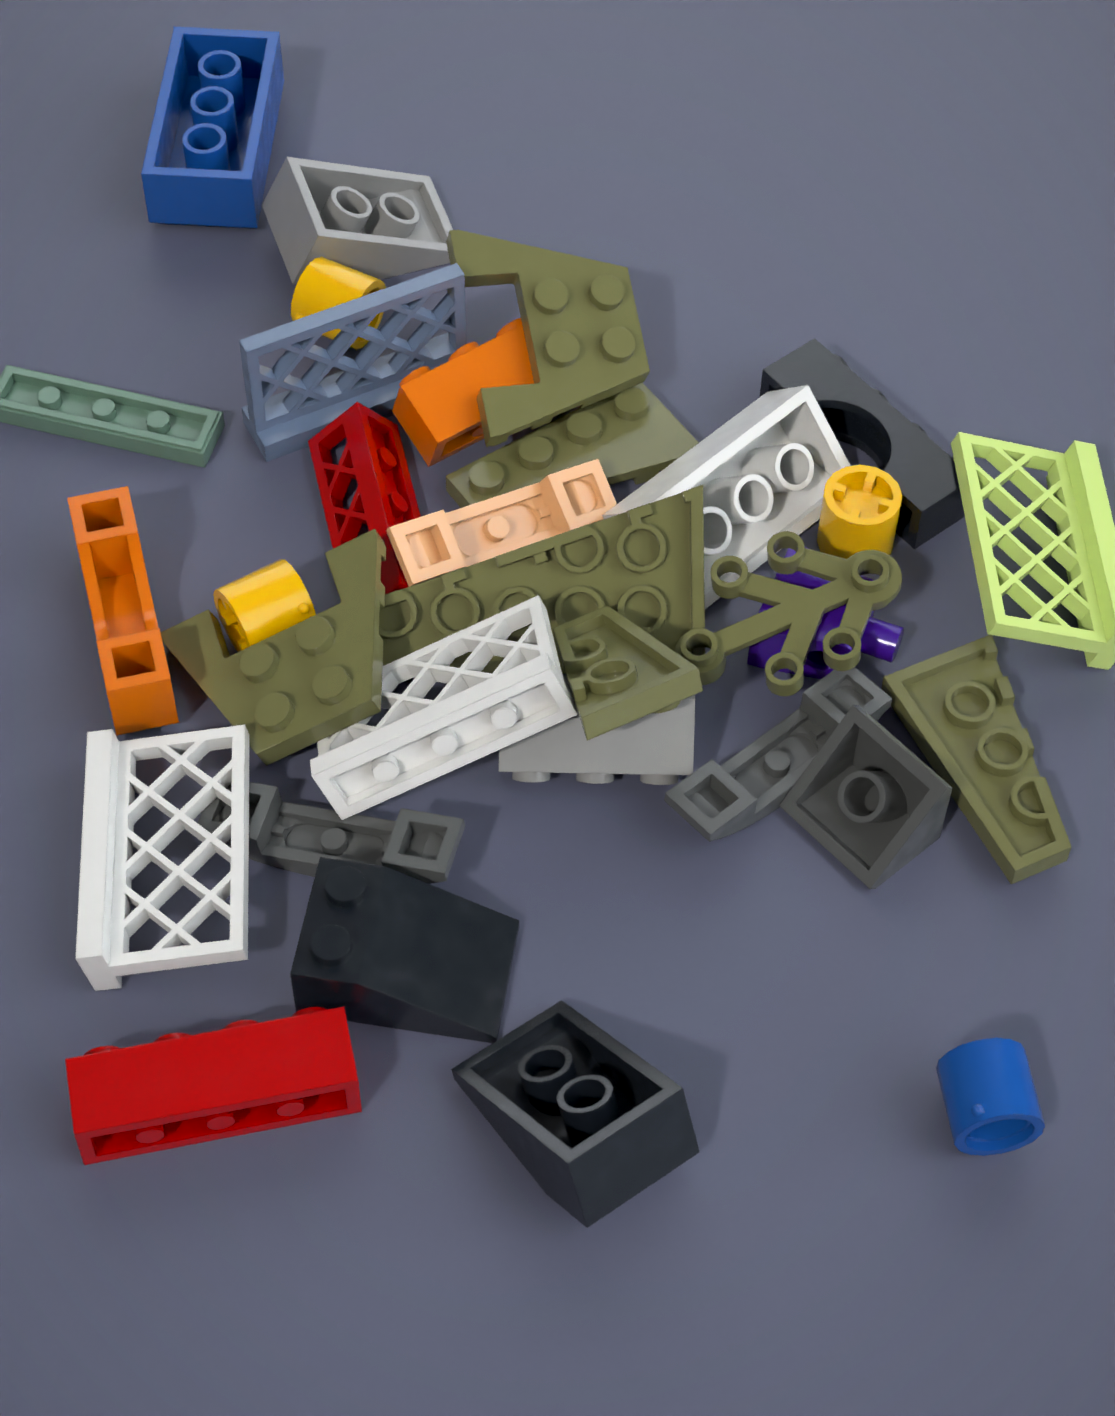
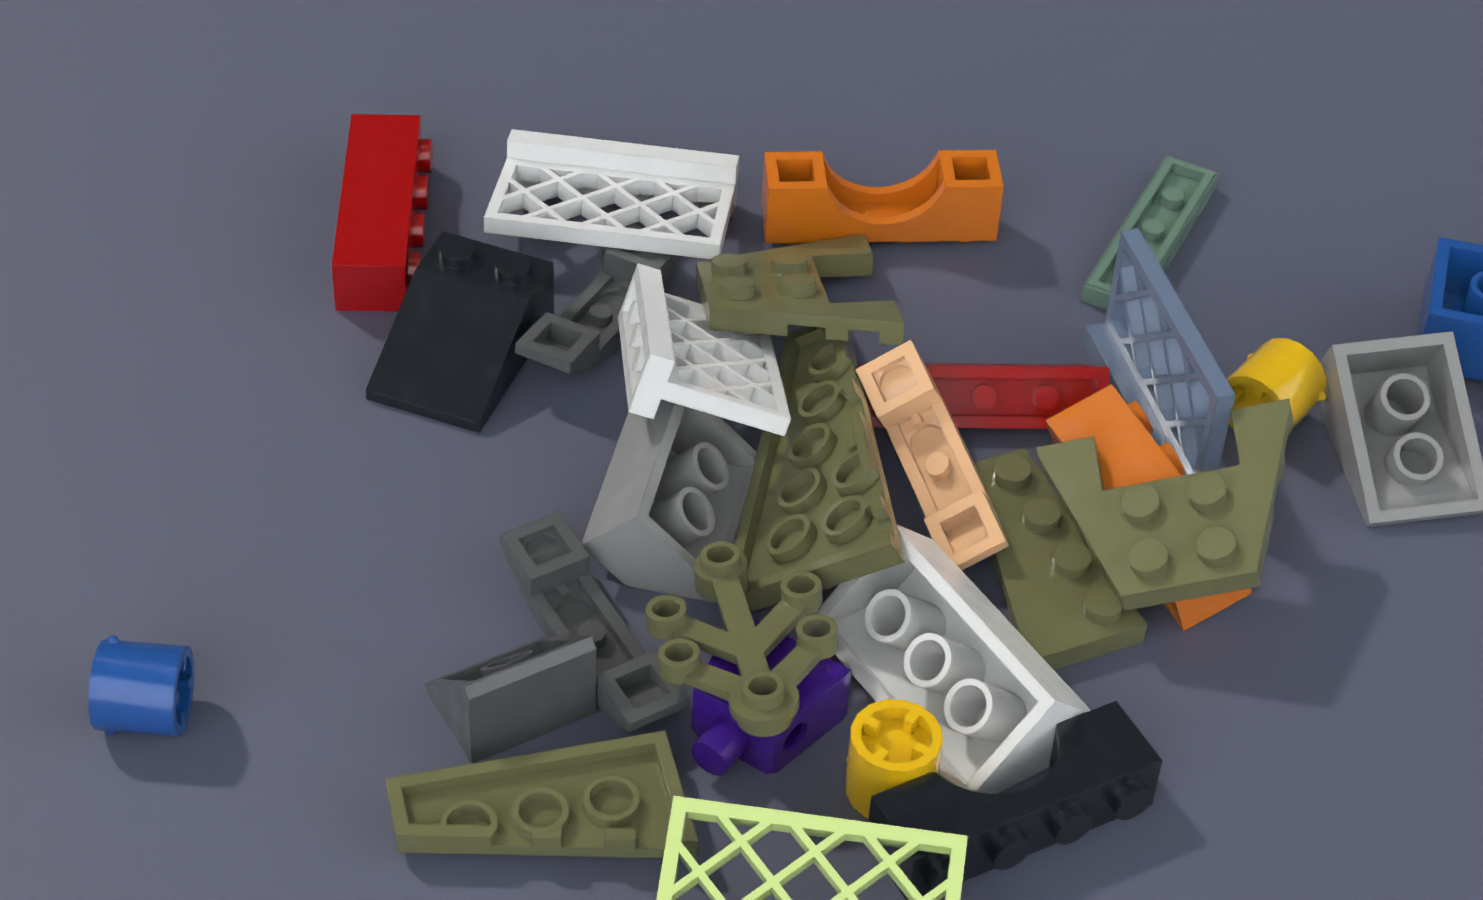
camera: 100 degrees right, 10 degrees down
(262, 604) = (860, 273): yellow piece -> none
(580, 1111) = (259, 412): black slope -> none
(620, 671) = (663, 456): olive wing -> none

